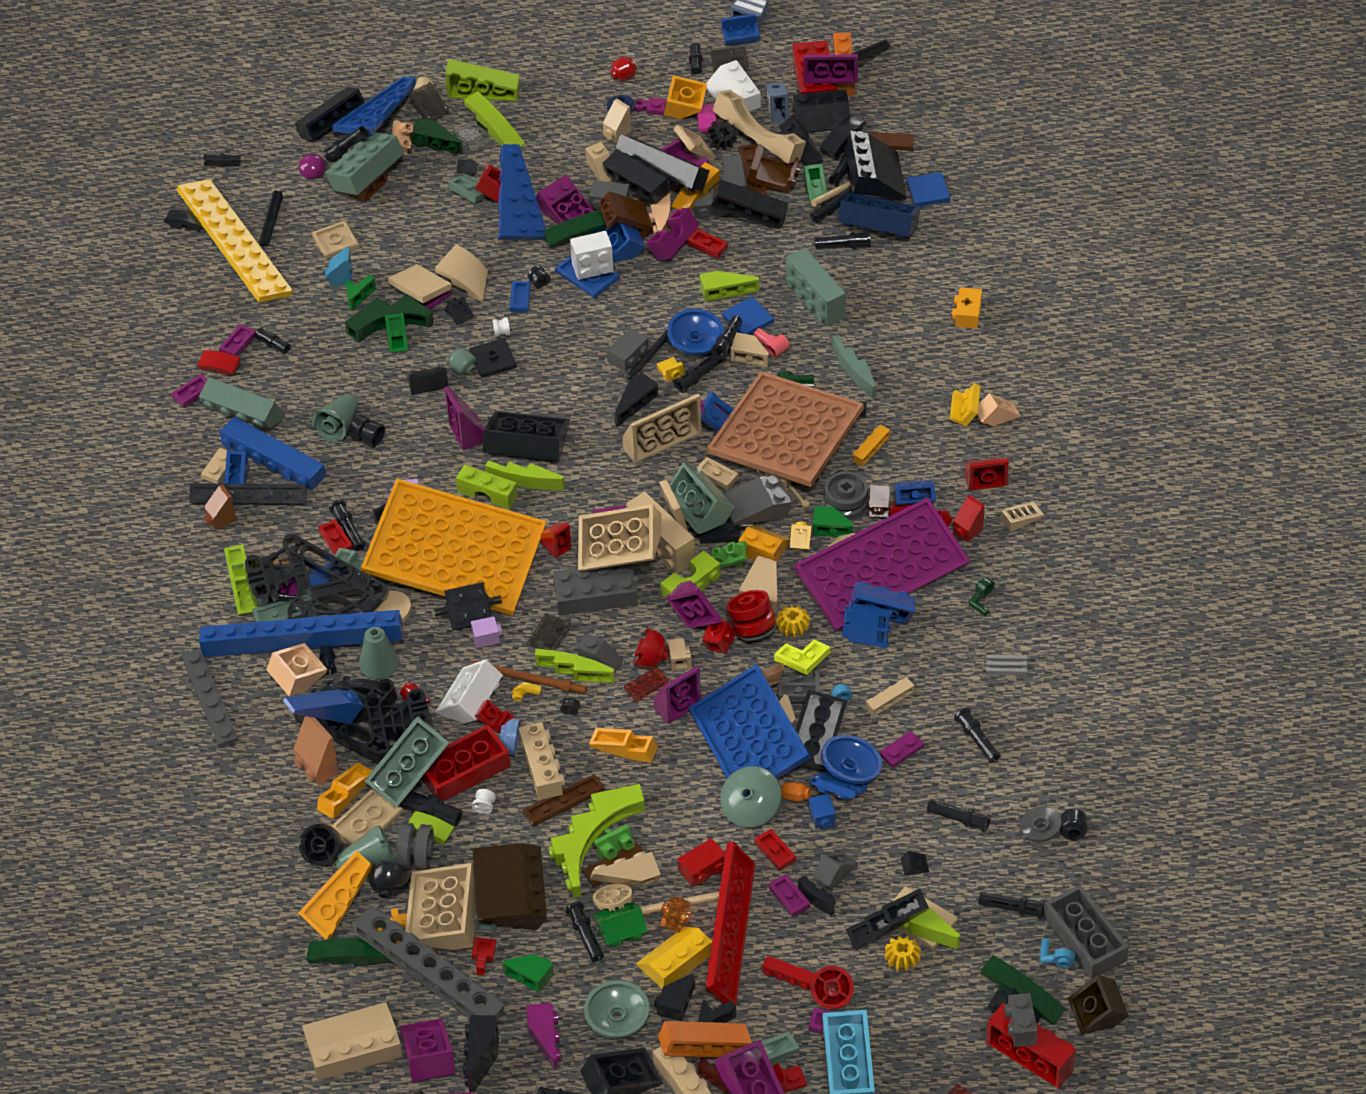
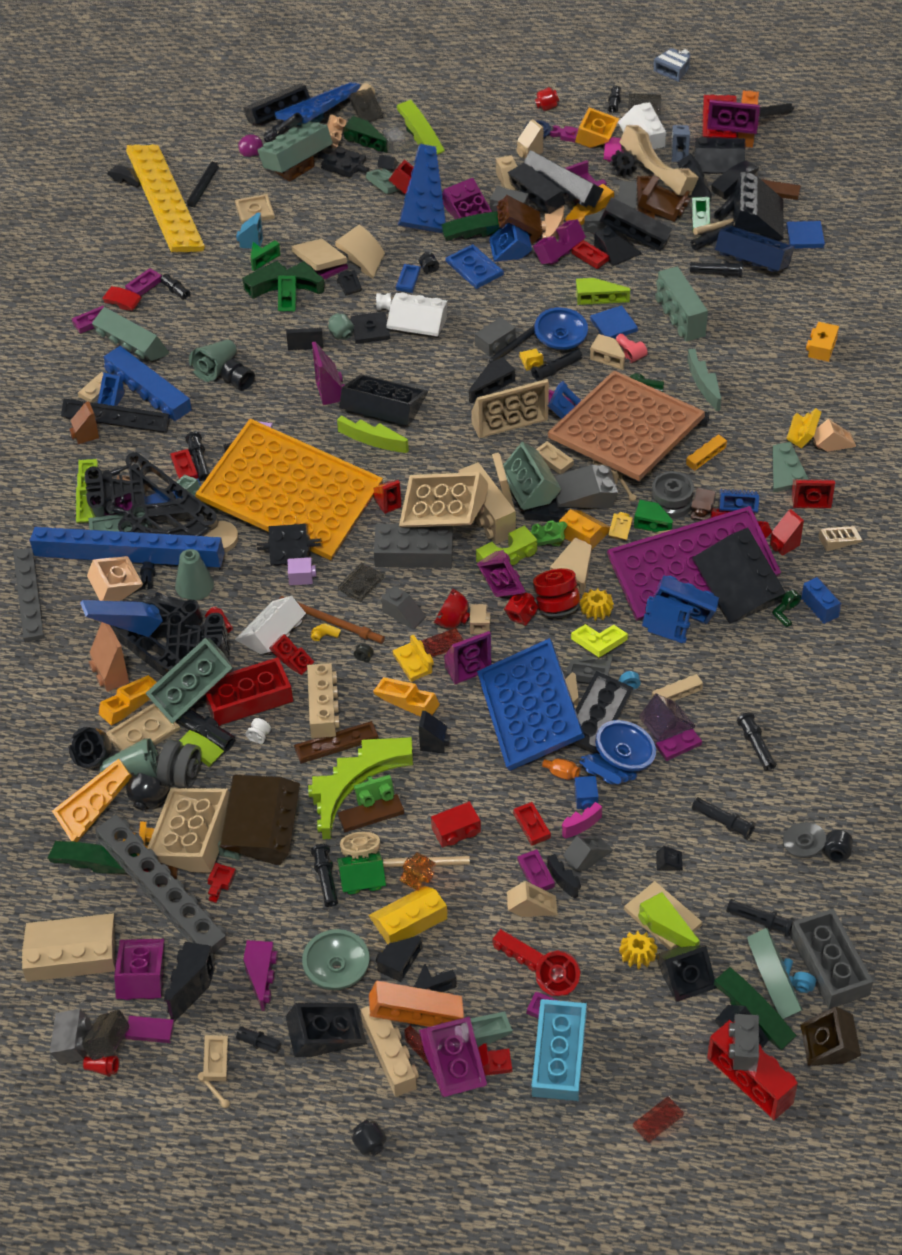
camera: 10 degrees right, 0 degrees up
(222, 160) = (173, 131): black pin -> none
(418, 172) = (343, 162): none -> black plate
(466, 79) = (424, 95): lime wedge -> none
(500, 490) = (346, 444): lime arch -> none
(510, 735) = (297, 672): medium blue piece -> none
(529, 971) = (260, 905): green slope -> none
(540, 337) = (417, 314): none -> white slope
(582, 668) = (382, 617): lime slope -> none
(591, 255) = (479, 248): white brick -> none
(622, 705) = (414, 659): none -> yellow bracket
(632, 872) = (385, 823): tan slope -> none
(660, 777) = (433, 734): none -> black slope
(694, 142) = (596, 166): tan tile -> none
(730, 924) = (469, 892): red plate -> none
(732, 230) = (615, 245): none -> black slope
(733, 325) = (586, 339): black pin -> none
(740, 29) = (659, 79): blue bracket -> none
(760, 805) = (526, 775): sand green dish -> none
(774, 673) = (566, 651): medium nougat piece -> none
(790, 924) = (531, 901): none -> tan slope
(821, 842) = (578, 823): none -> dark pink slope
(883, 726) = (665, 718): none -> clear purple slope
(887, 919) = (628, 912): black slope -> none
(930, 571) = (739, 576): none -> black slope
(952, 965) = (687, 971): none -> black slope
(954, 449) = (785, 467): none -> sand green wing
(1006, 662) = (799, 675): light grey tile -> none
(1014, 583) = (821, 600): none -> blue brick
(1035, 954) = (774, 973): none -> sand green slope

